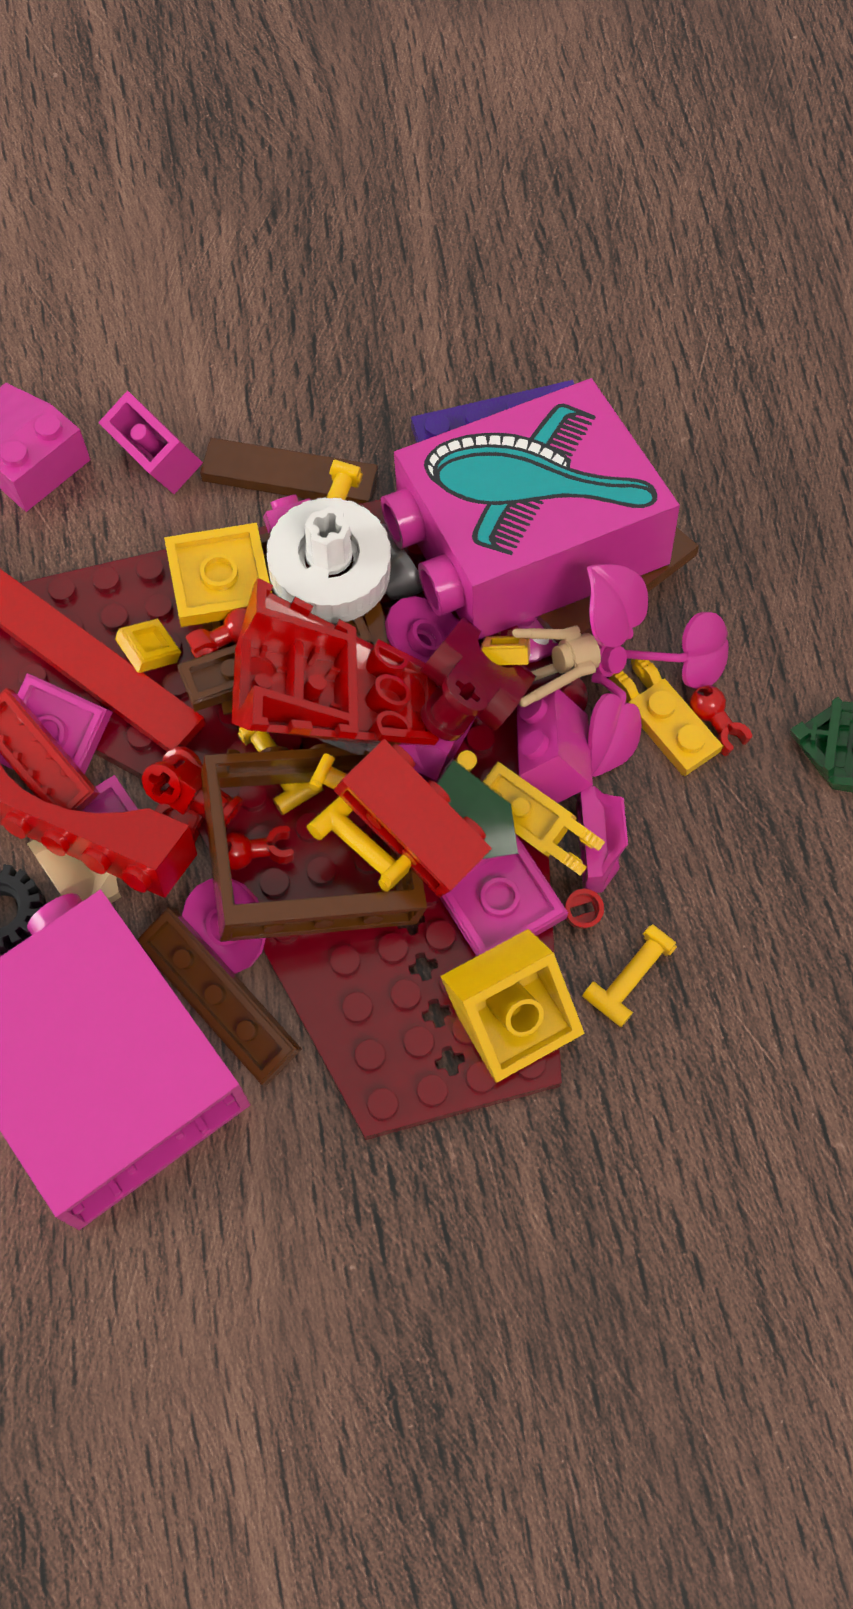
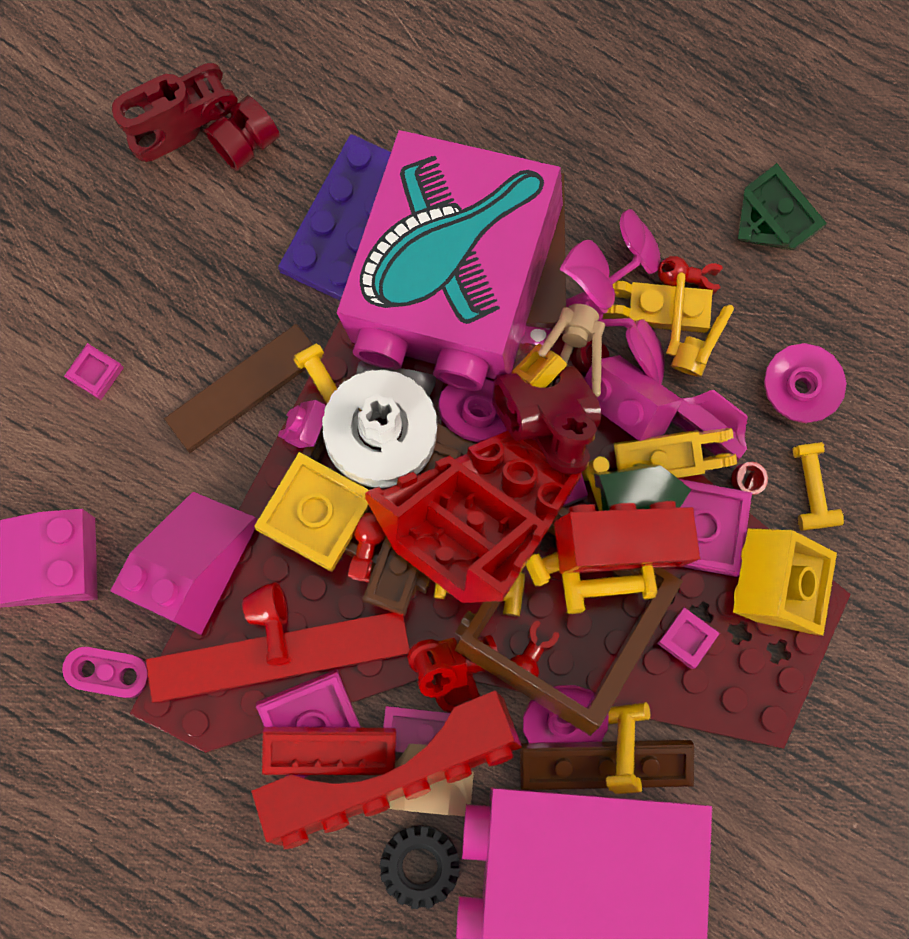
camera: 50 degrees left, 10 degrees up
(99, 535) = (186, 561): none -> dark pink slope
(110, 614) = (269, 609): none -> red bar
(148, 645) = (309, 603): yellow tile -> none
(150, 442) = (134, 466): dark pink brick -> none
(205, 367) = (94, 371): none -> dark pink tile
(268, 972) = (625, 717): none -> yellow piece
(385, 962) = (688, 638): none -> dark pink plate
(458, 243) = (173, 109): none -> dark red piece
(492, 306) = (242, 133): none -> dark red wheel
(649, 774) = (693, 353): none -> yellow plant
(725, 867) = (817, 370): none -> dark pink dish

